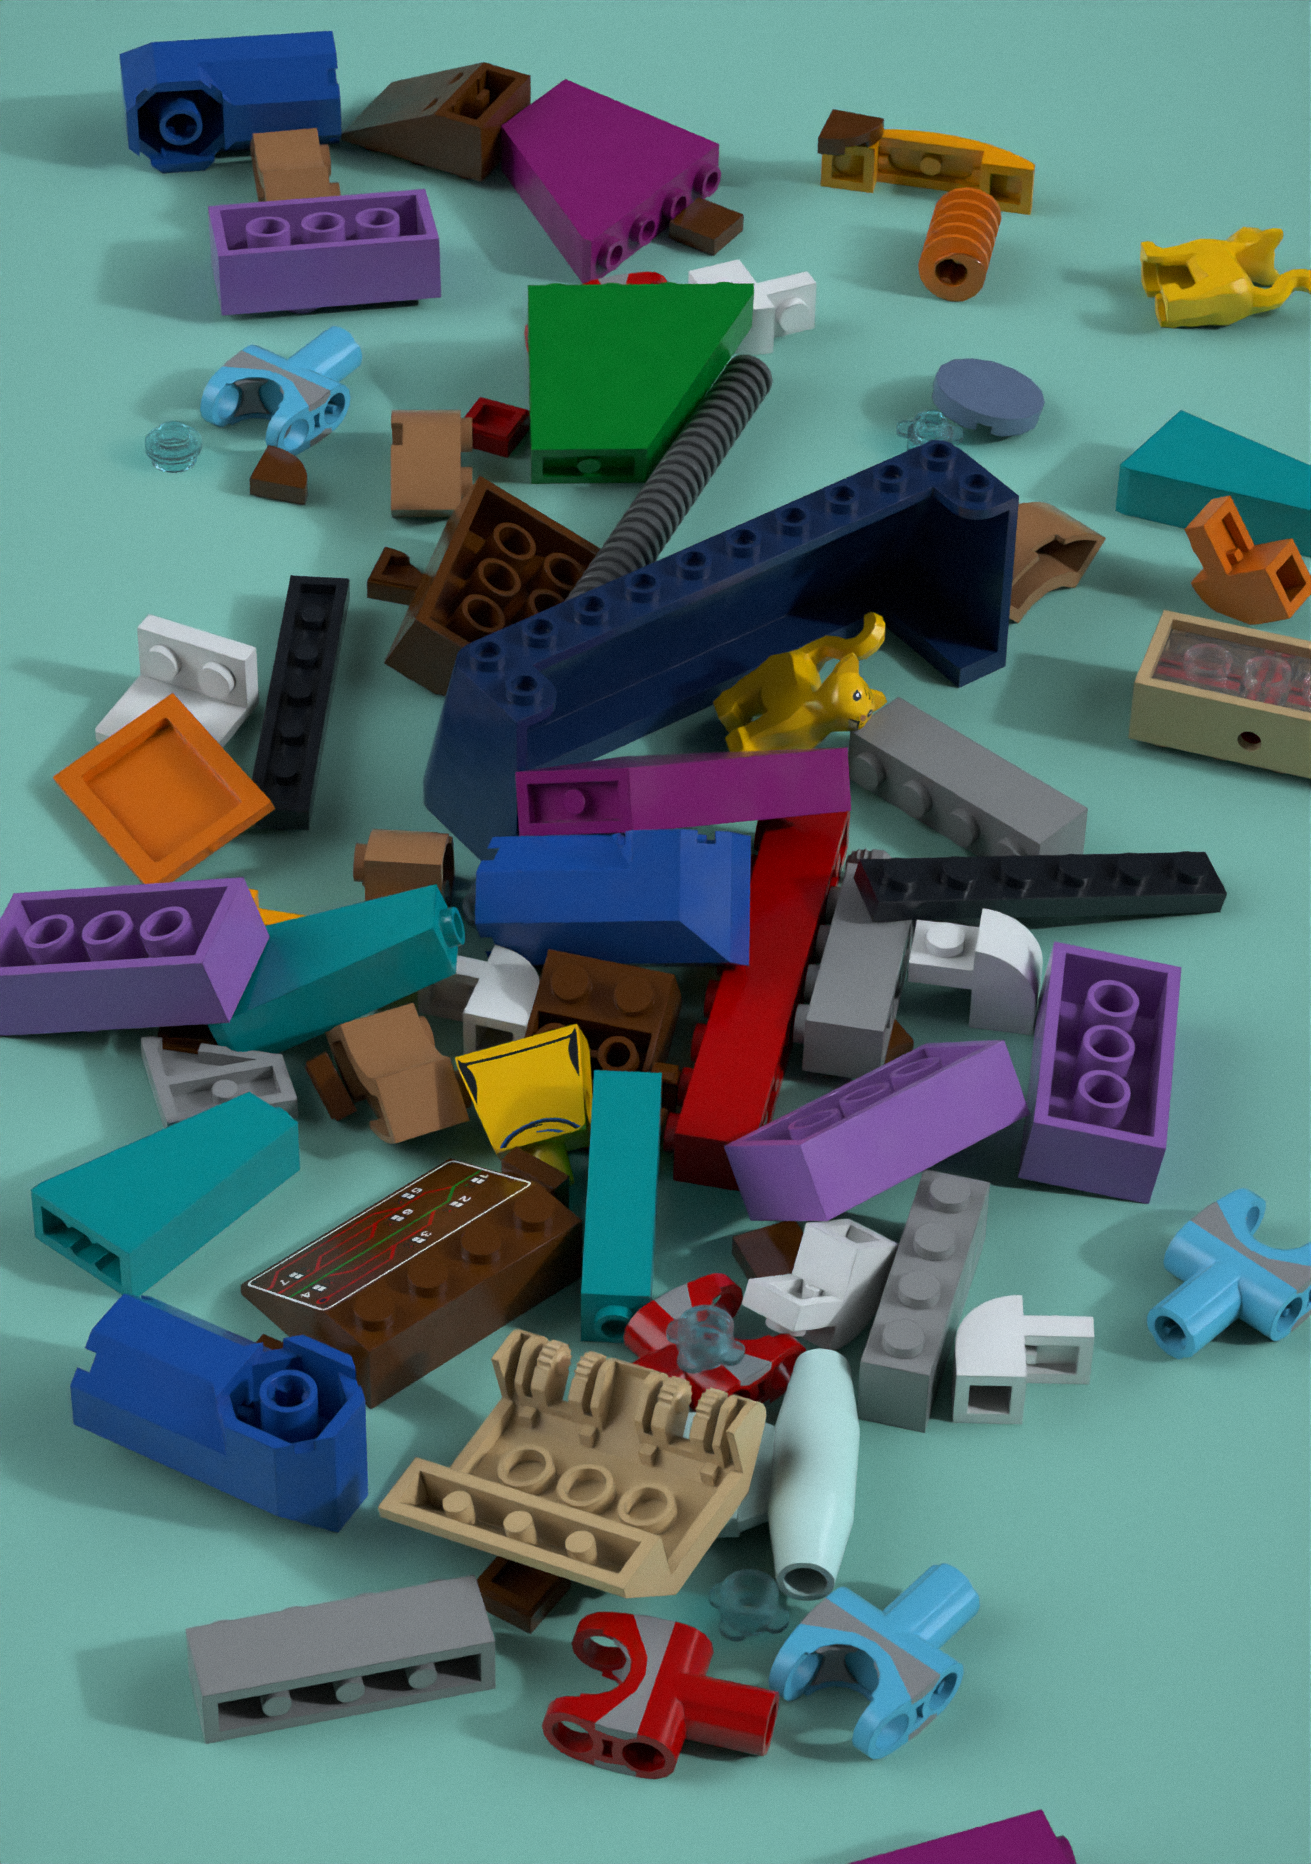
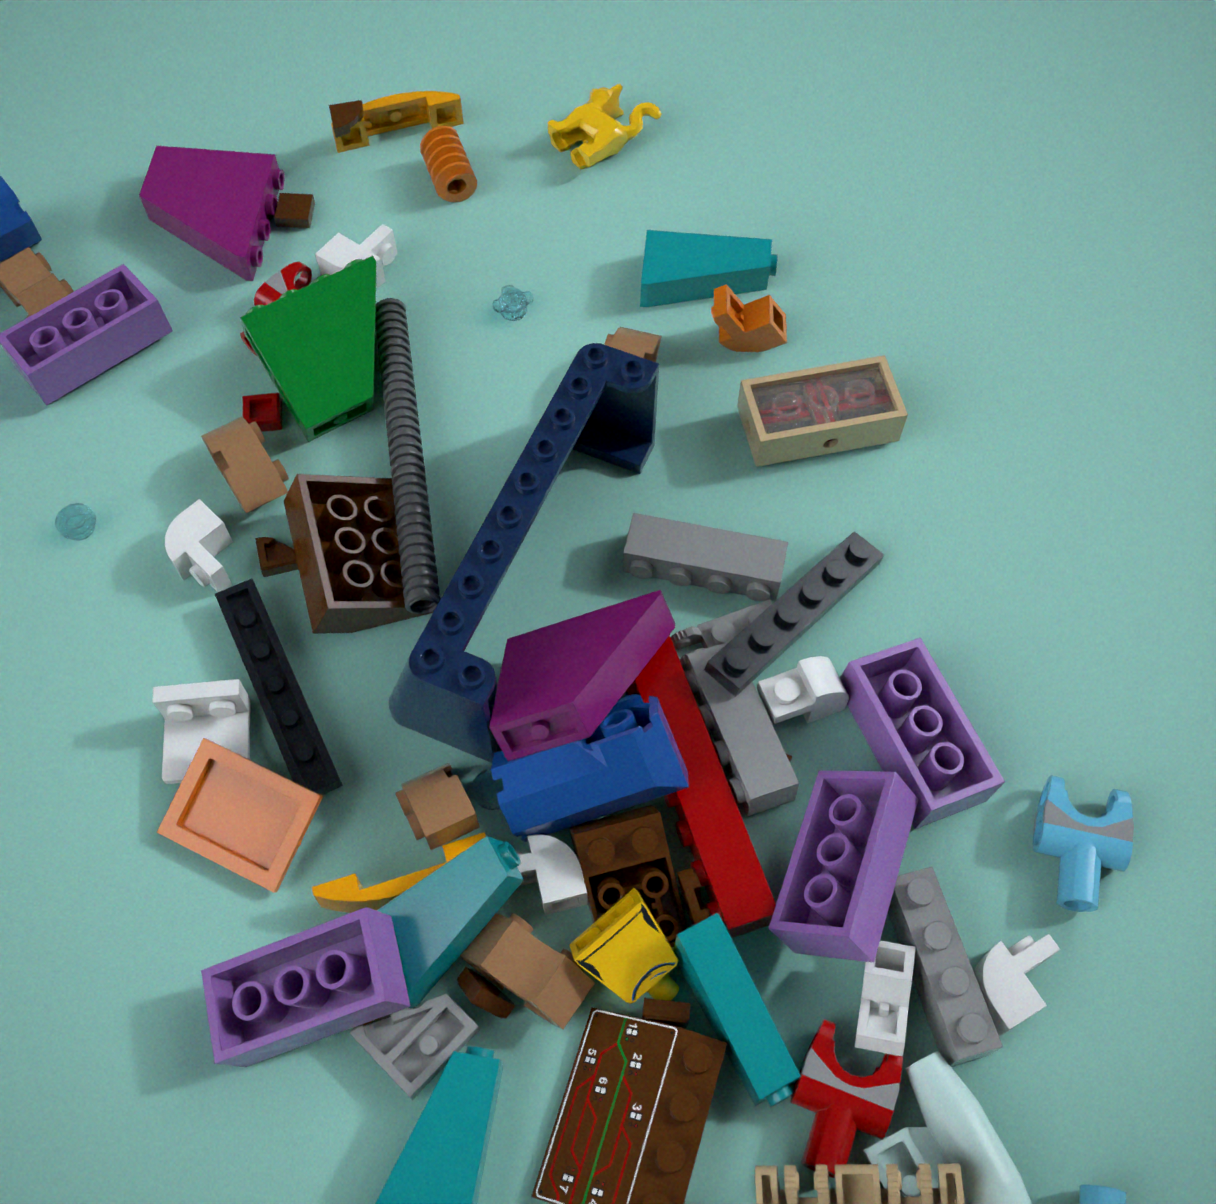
camera: 30 degrees left, 20 degrees up
(279, 477) = (155, 512): reddish brown tile -> none
(293, 393) = (123, 446): medium azure connector -> none
(305, 518) = (194, 542): none -> white brick
(444, 118) = (96, 201): reddish brown slope -> none
(705, 1339) = (876, 1099): clear light blue plate -> none
(768, 1249) = (827, 977): reddish brown tile -> none
(792, 700) = (575, 545): yellow animal -> none
(989, 395) = (529, 263): sand blue tile -> none

